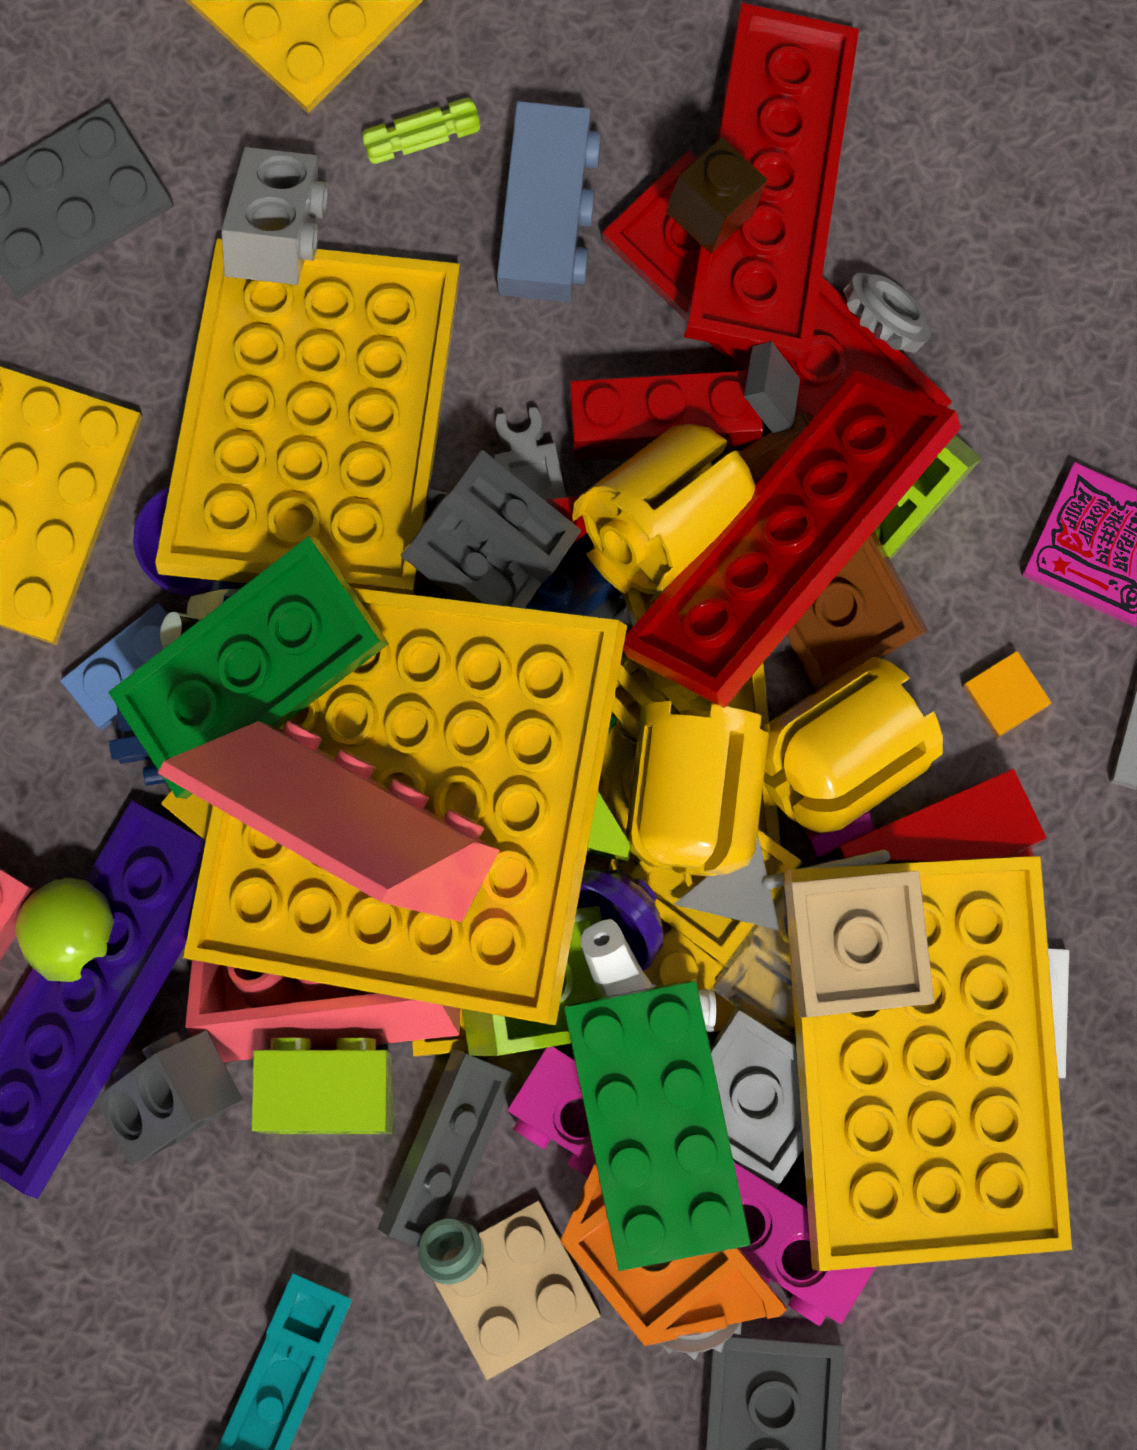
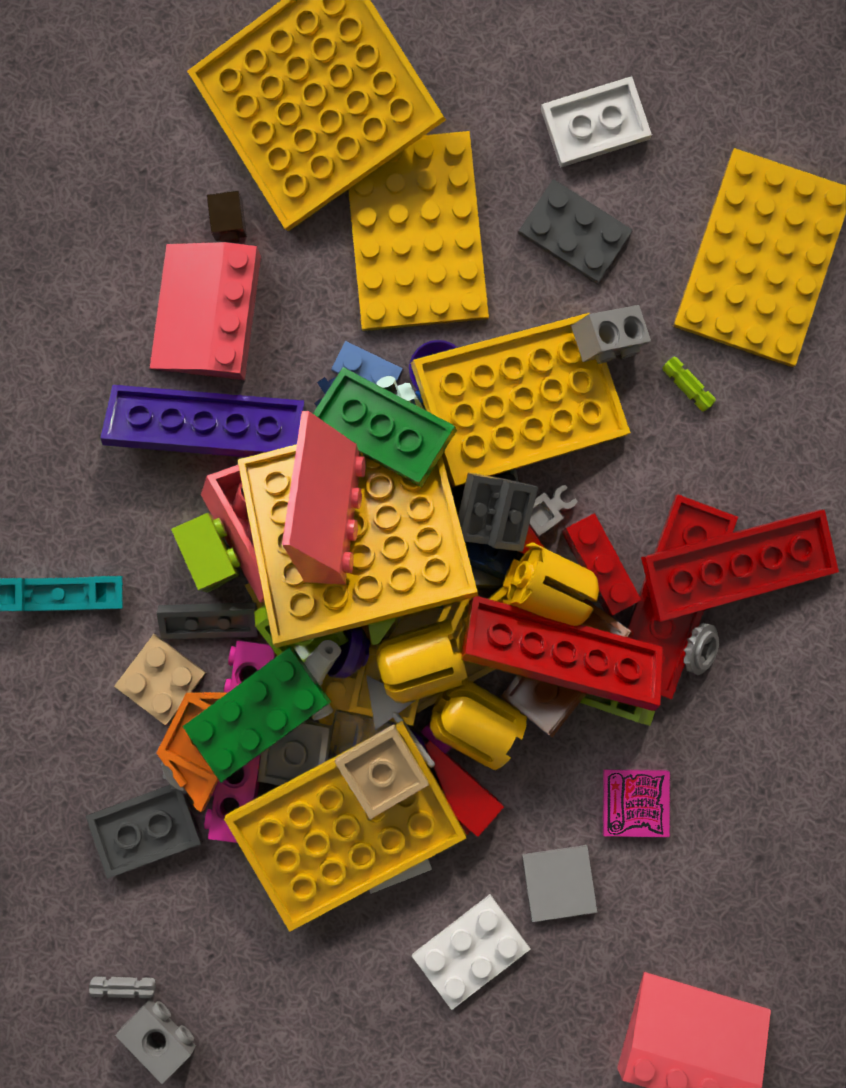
camera: 60 degrees right, 5 degrees up
(64, 928) = (230, 398): lime hair -> none
(167, 1095) = (174, 481): dark grey brick -> none
(441, 1238) = (162, 635): sand green plate -> none
(547, 202) = (680, 460): sand blue brick -> none
(716, 195) = (716, 542): dark brown brick -> none
(772, 387) = (635, 610): dark grey tile -> none
(1006, 694) = (541, 787): light orange tile -> none

